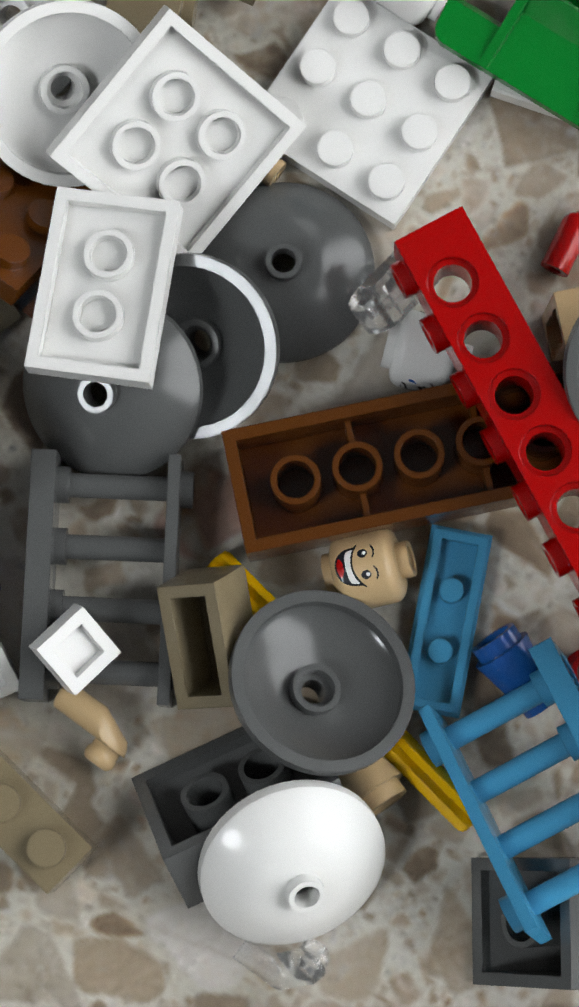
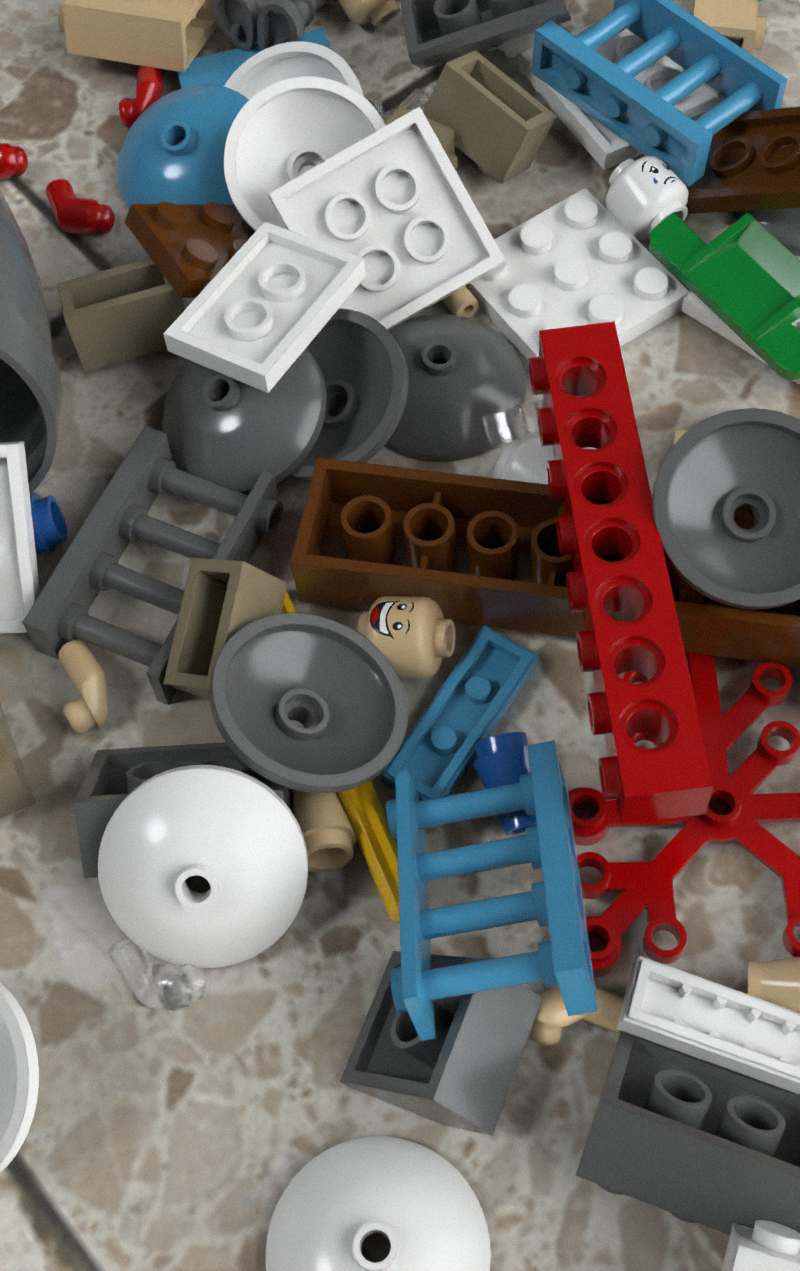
camera: 25 degrees right, 20 degrees down
(75, 649) = (94, 594): white plate -> none

